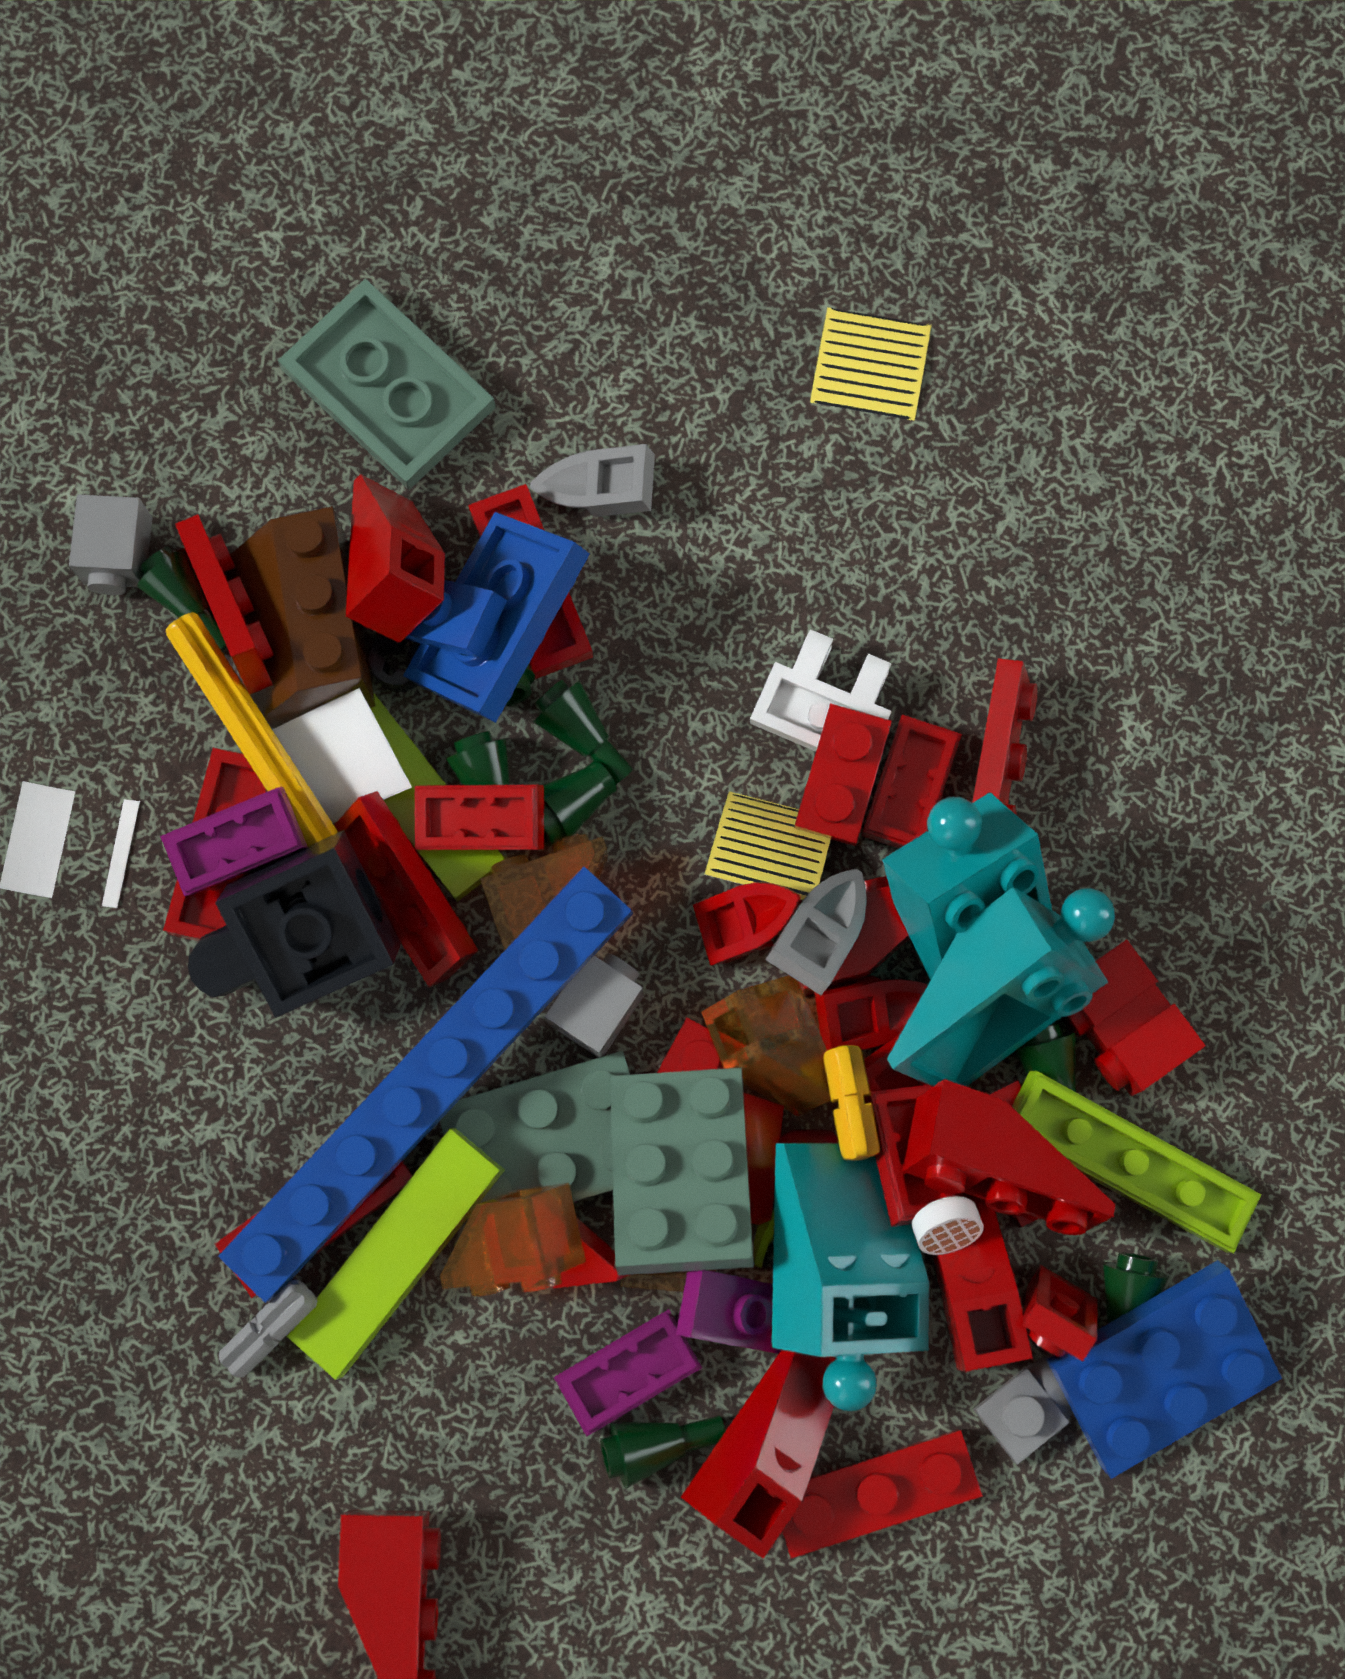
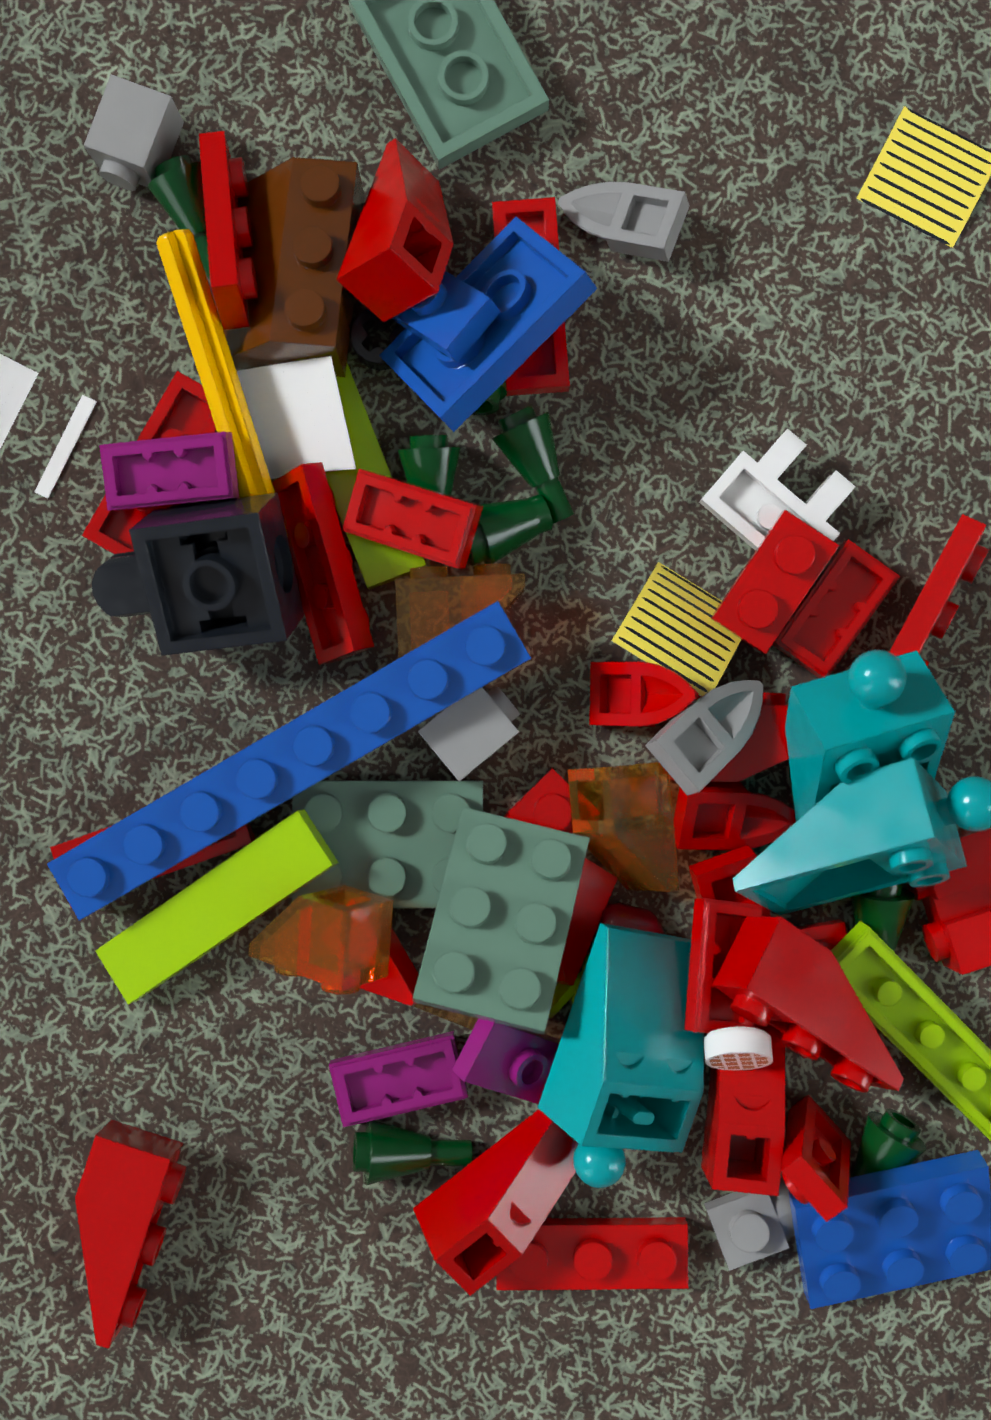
camera: 15 degrees right, 10 degrees up
(267, 1328) = (78, 939): light grey piece -> none
(854, 1118) = (681, 920): yellow piece -> none

